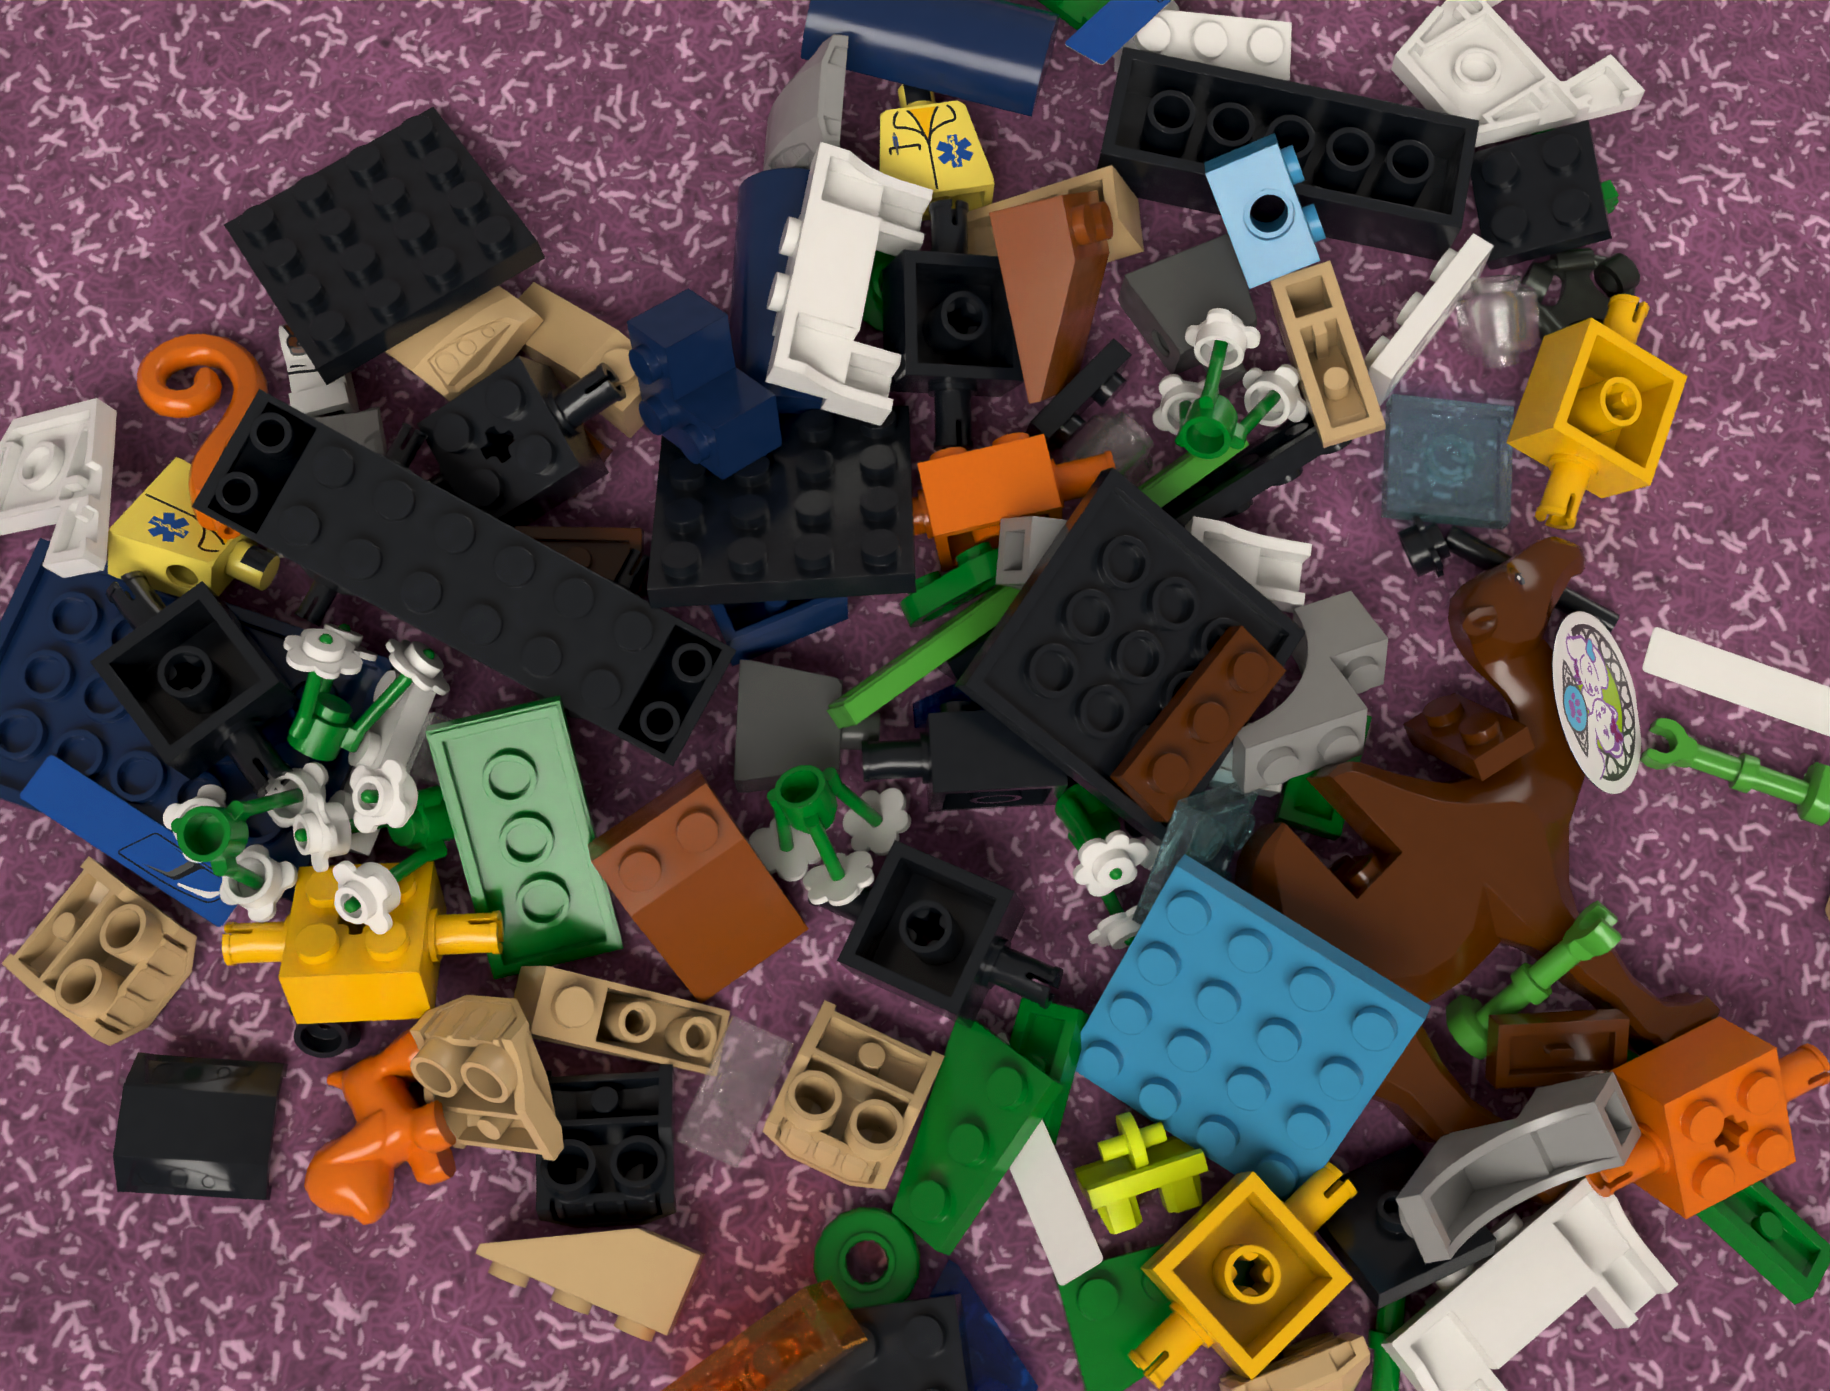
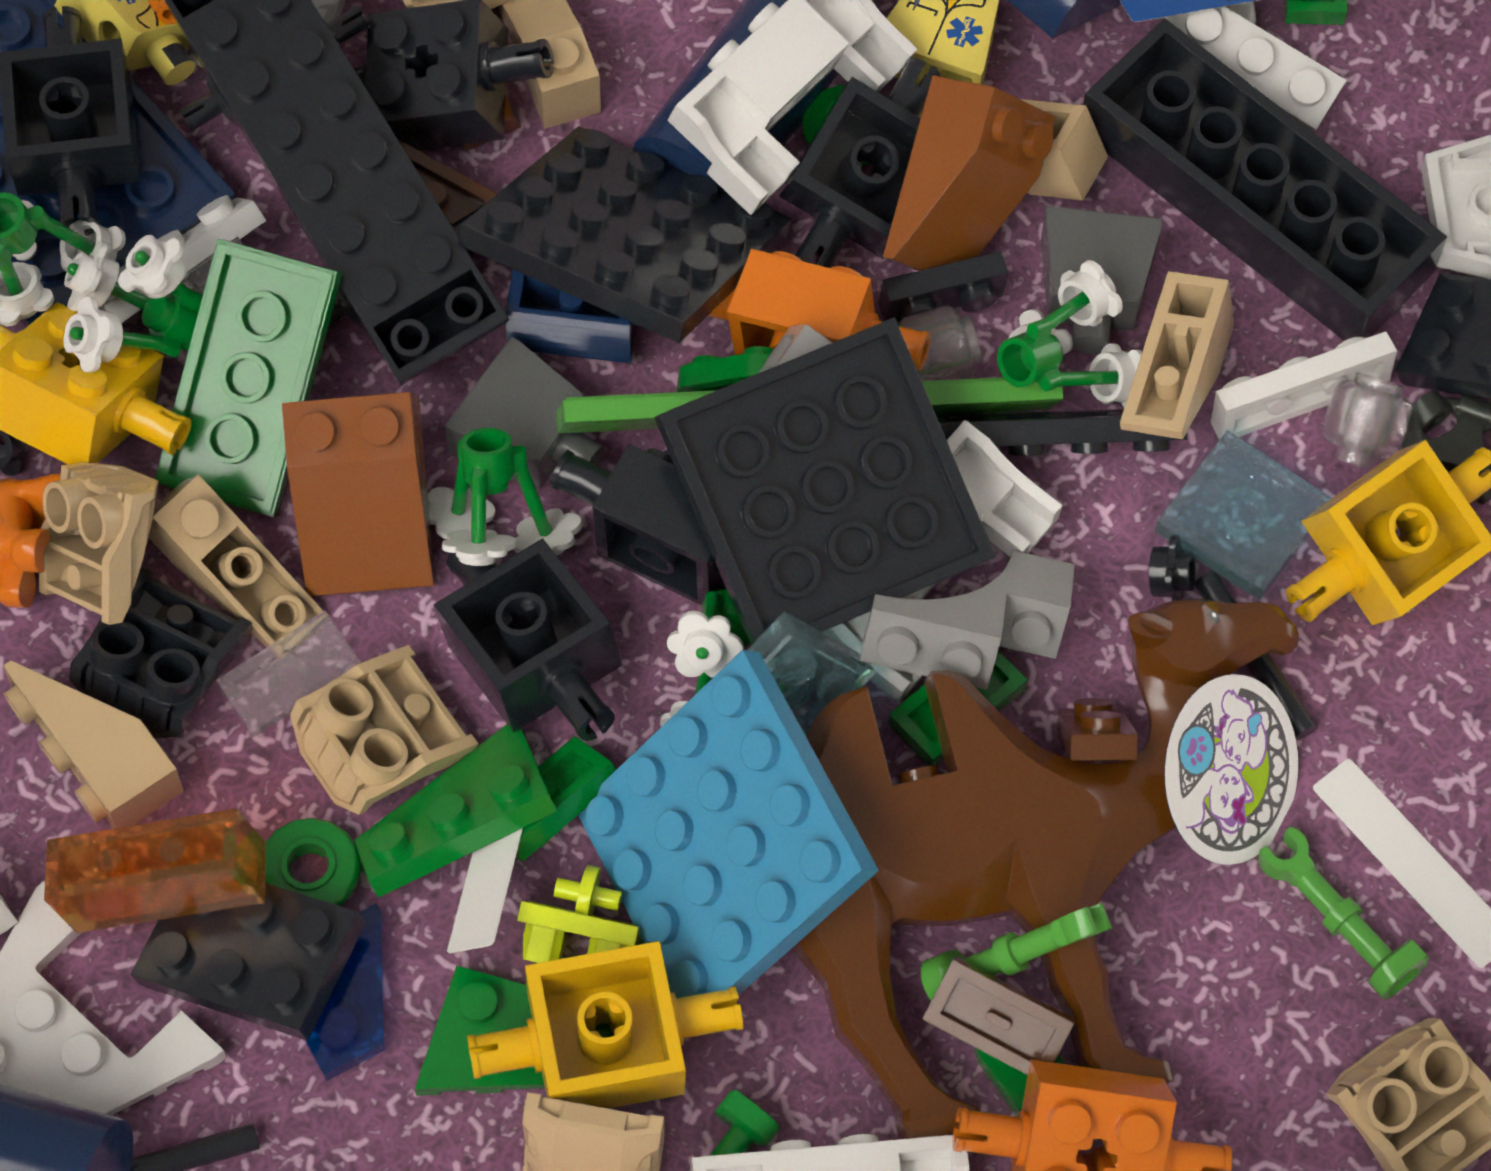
camera: 35 degrees right, 10 degrees down
(324, 719) = (145, 202): plant -> none
(695, 389) = (612, 99): dark blue brick -> none
(1198, 723) = (846, 567): reddish brown plate -> none
(1261, 247) = (1171, 235): brick -> none
(1372, 1241) = (767, 1083): black plate -> none
(1493, 1167) = (885, 1062): light grey arch -> none

